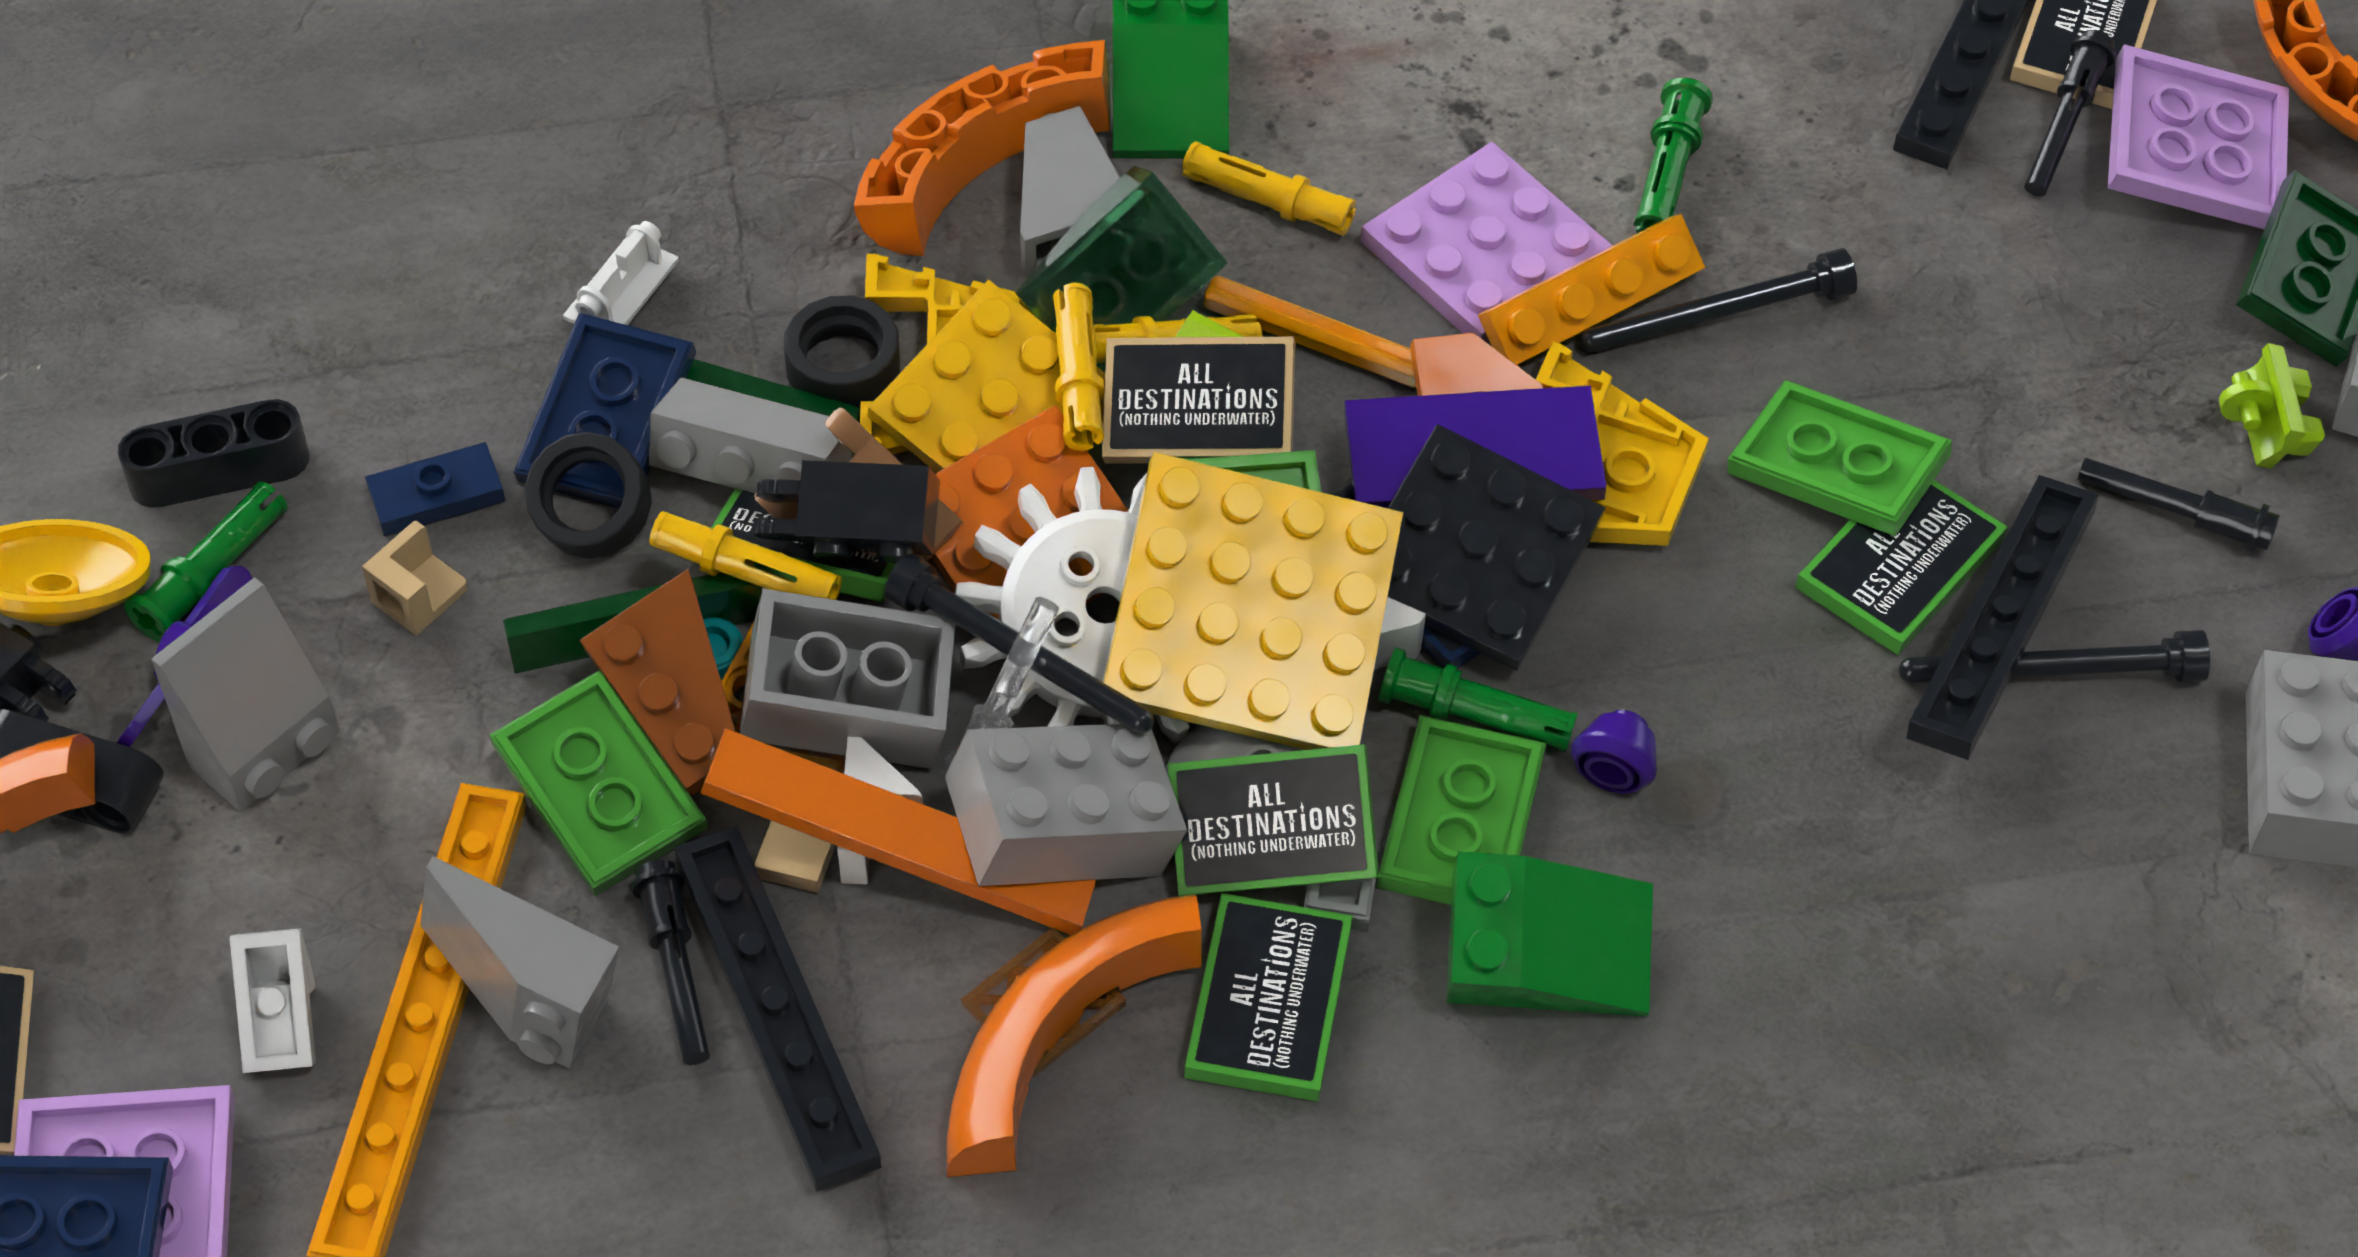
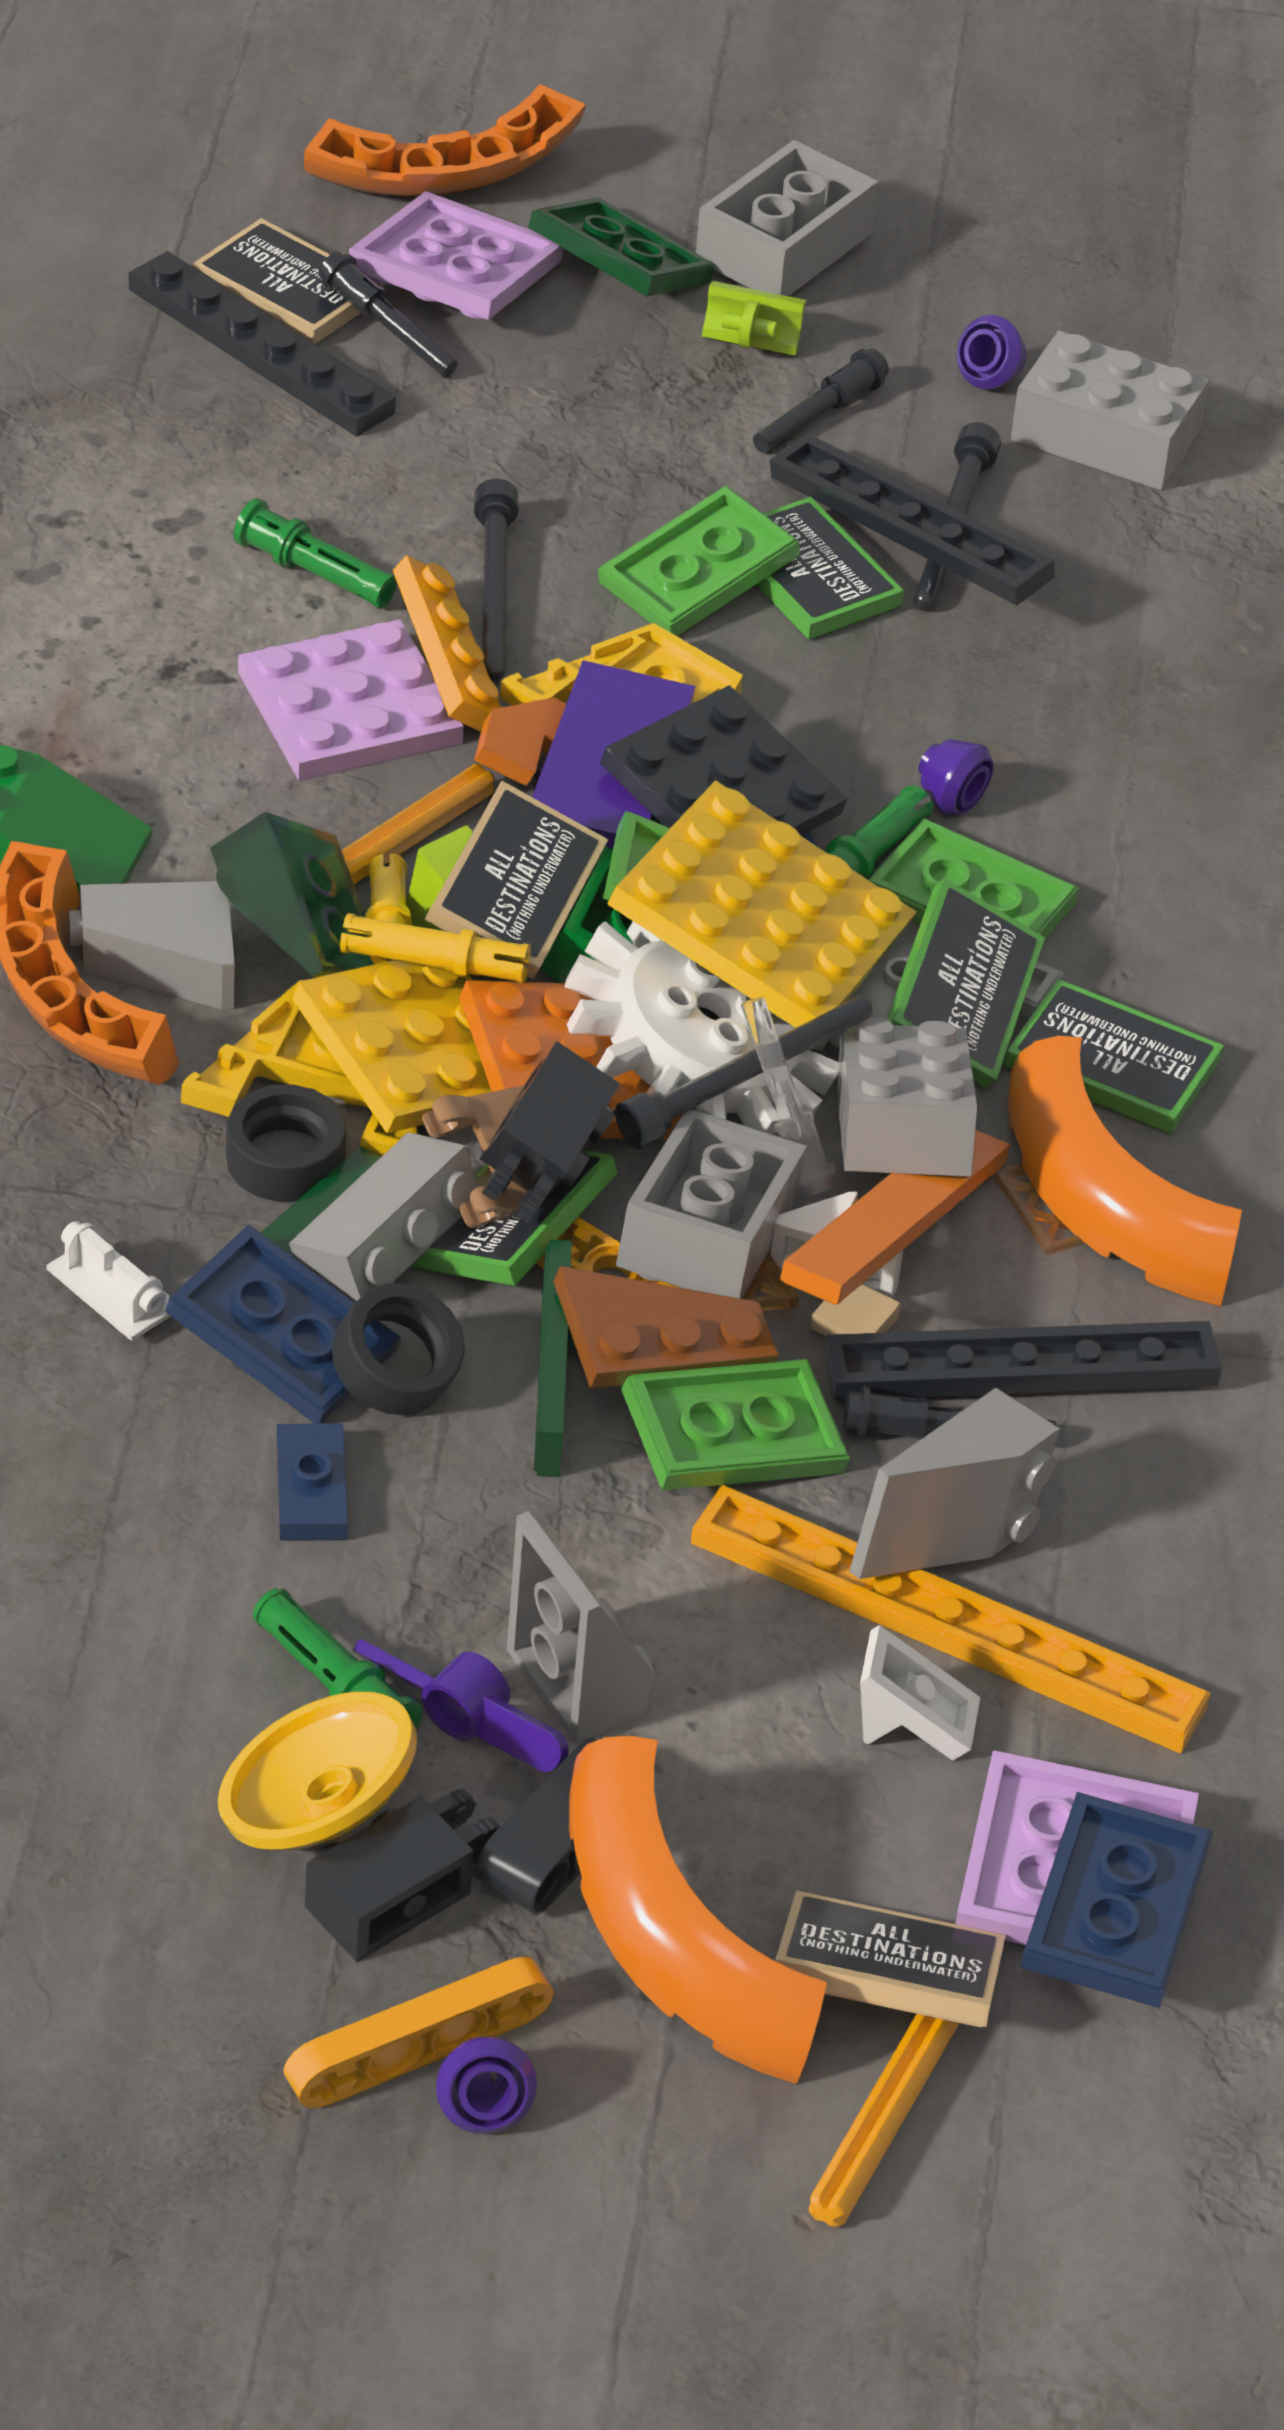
camera: 75 degrees left, 10 degrees down
(213, 453) = (200, 1633): black beam -> none
(411, 581) = (433, 1519): tan panel -> none
(720, 551) = (540, 1246): yellow pin -> none
(1291, 197) = (236, 799): yellow pin -> none
(1548, 936) = (1124, 875): green slope -> none

